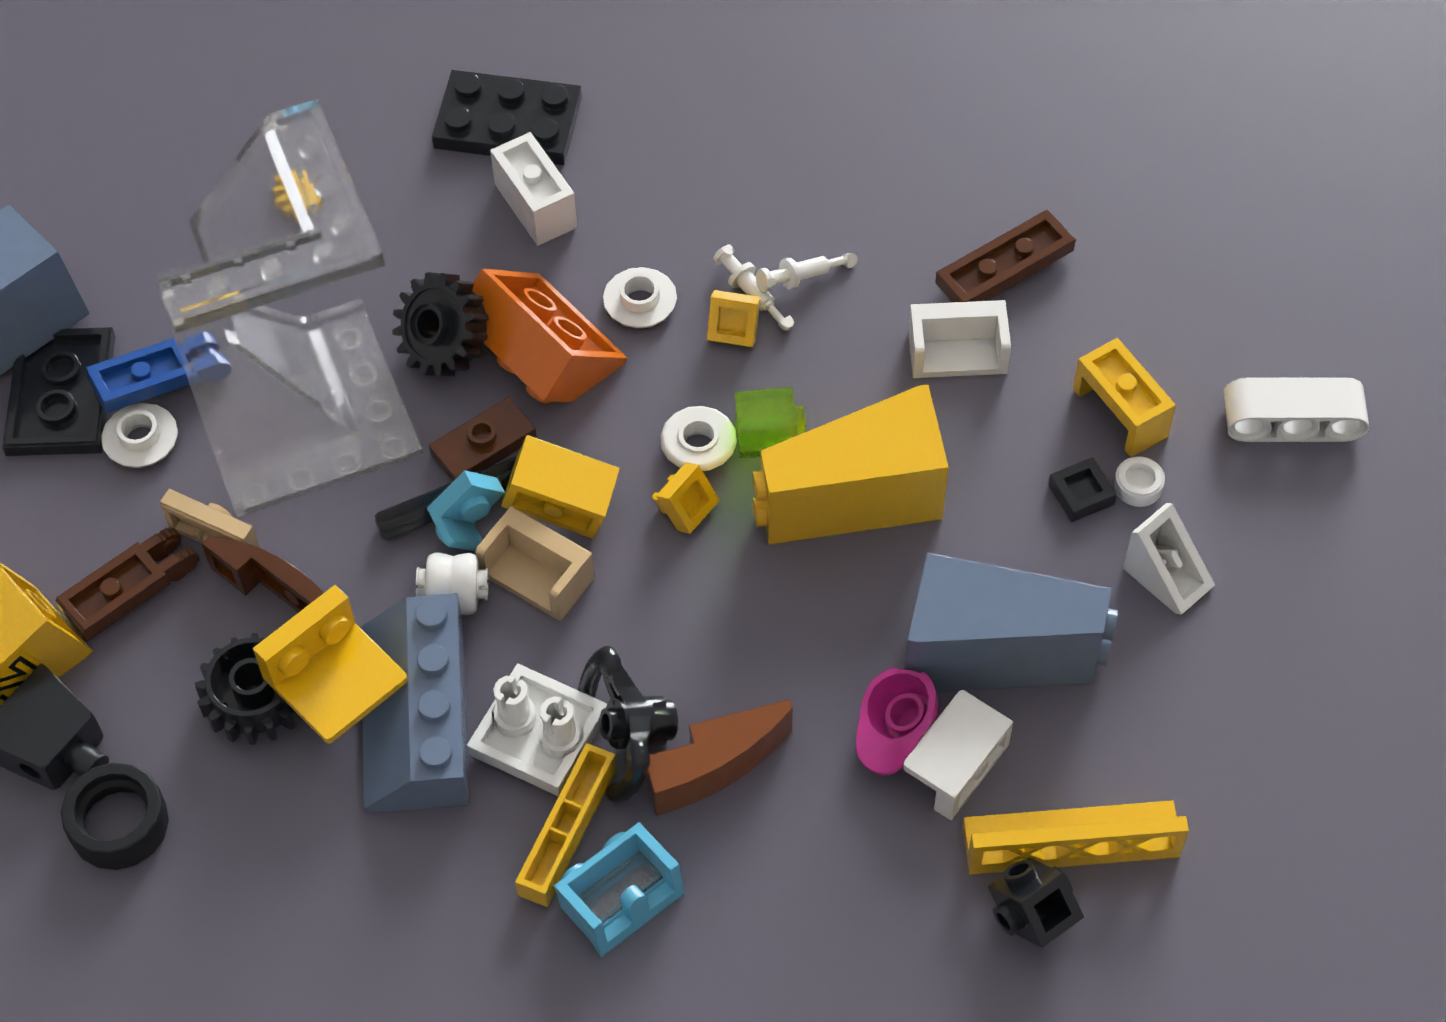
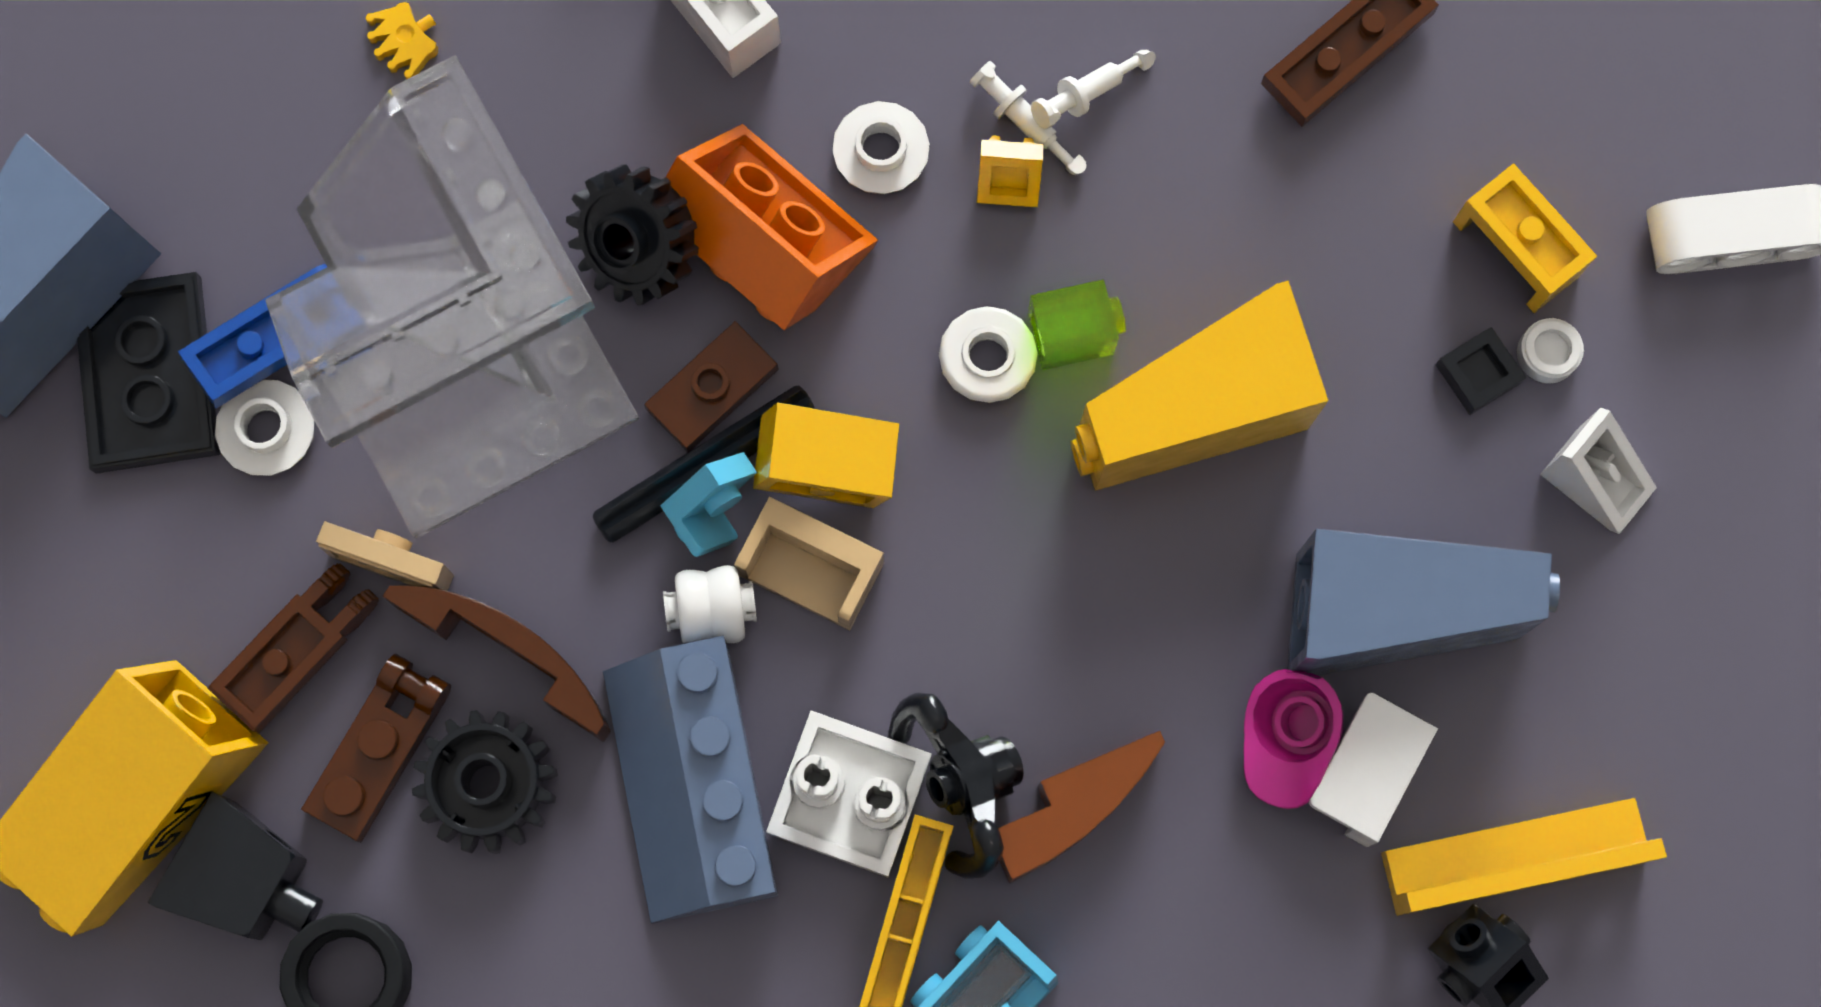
camera: 10 degrees left, 20 degrees up
(173, 662) = (376, 749): none -> reddish brown plate
(328, 666) = (586, 771): yellow bracket -> none
(686, 498) = (986, 446): yellow tile -> none
(959, 339) = (1304, 171): white panel -> none

